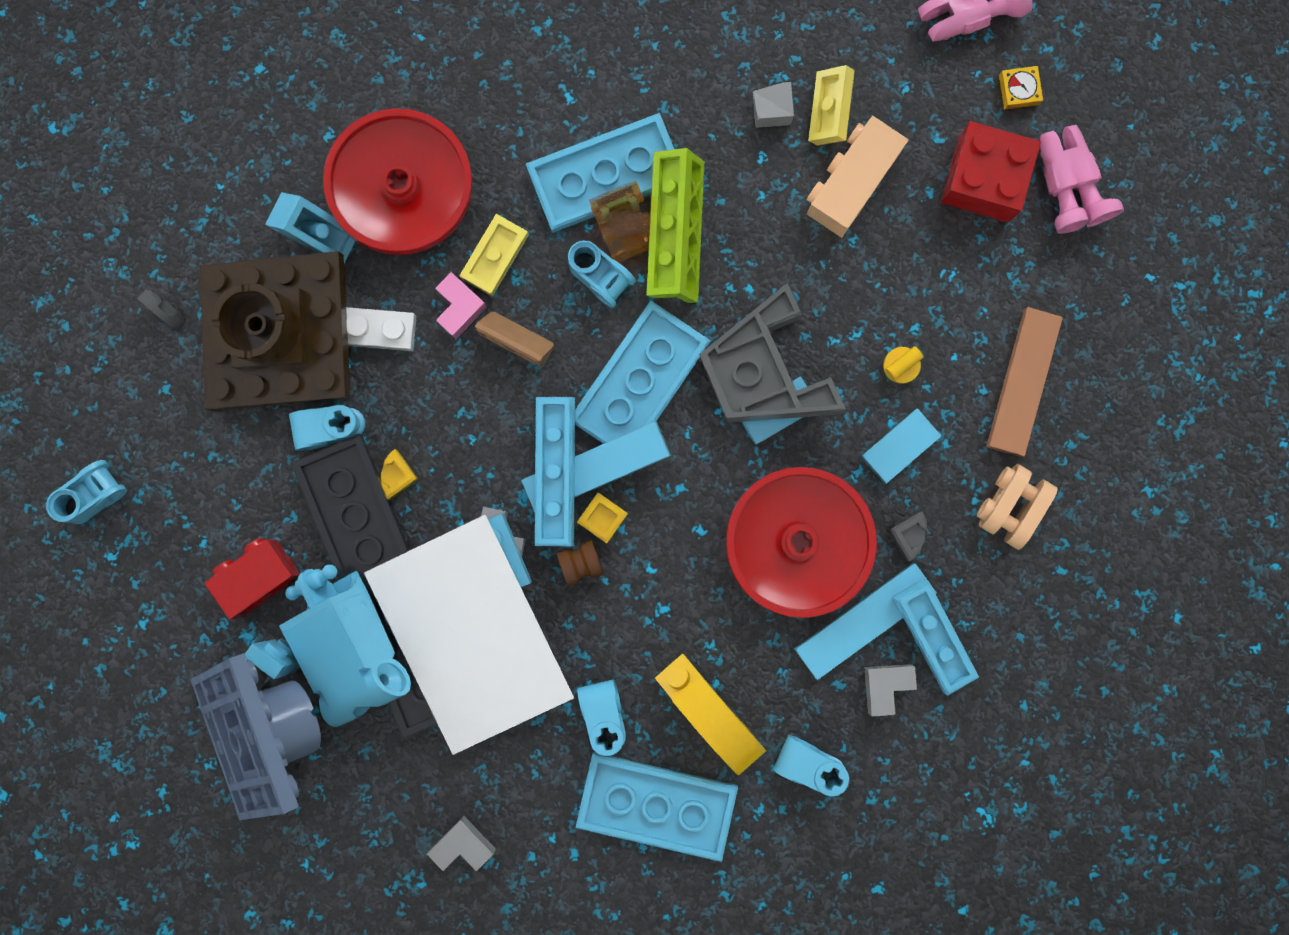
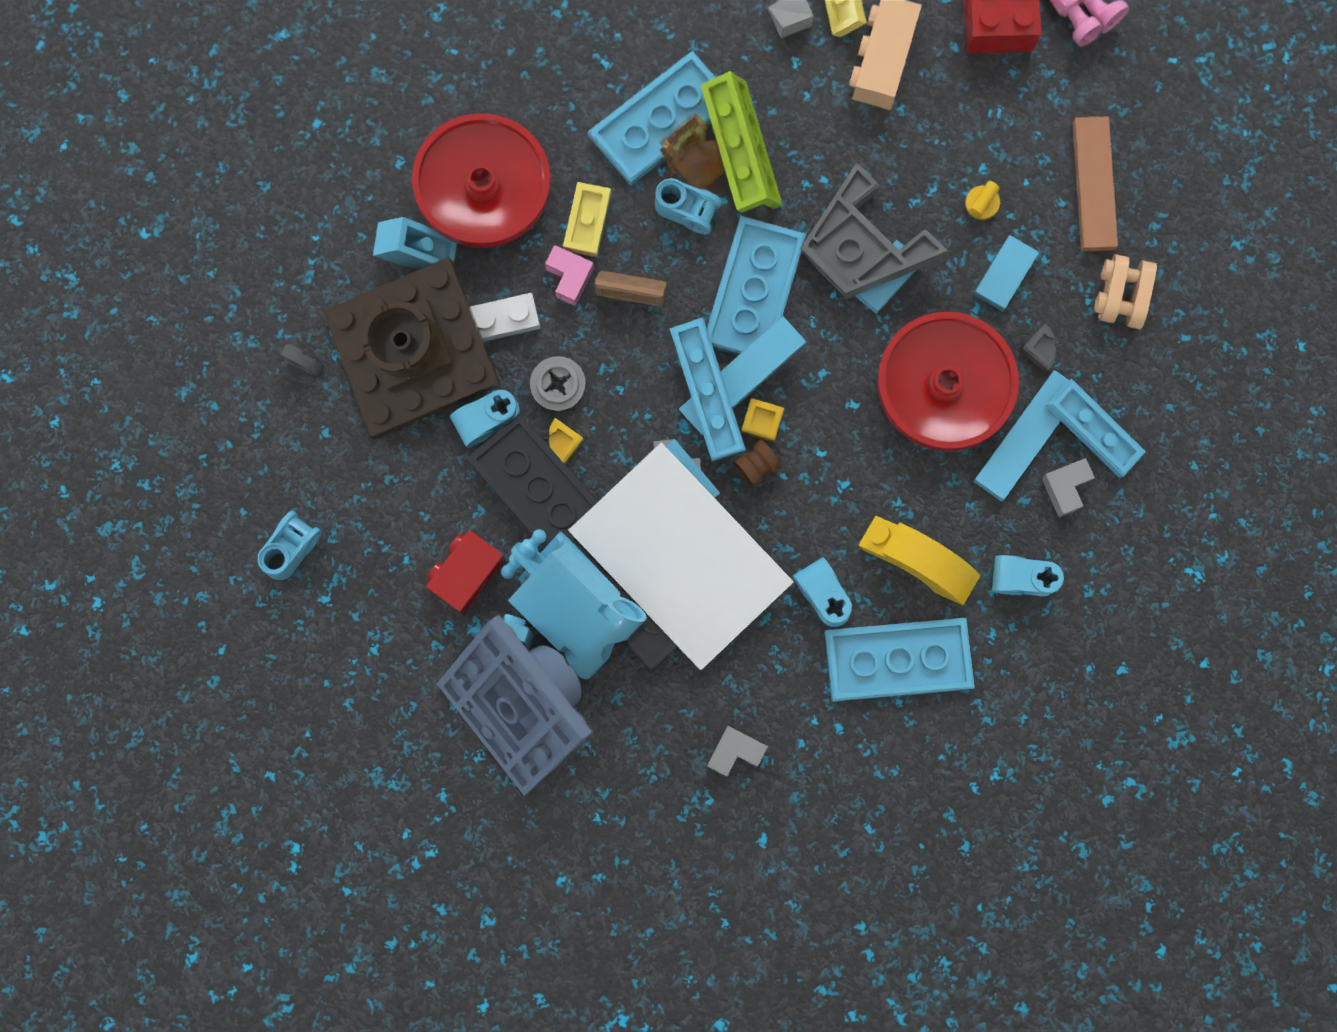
camera: 20 degrees left, 5 degrees down
(394, 407) = (561, 368): none -> light grey gear

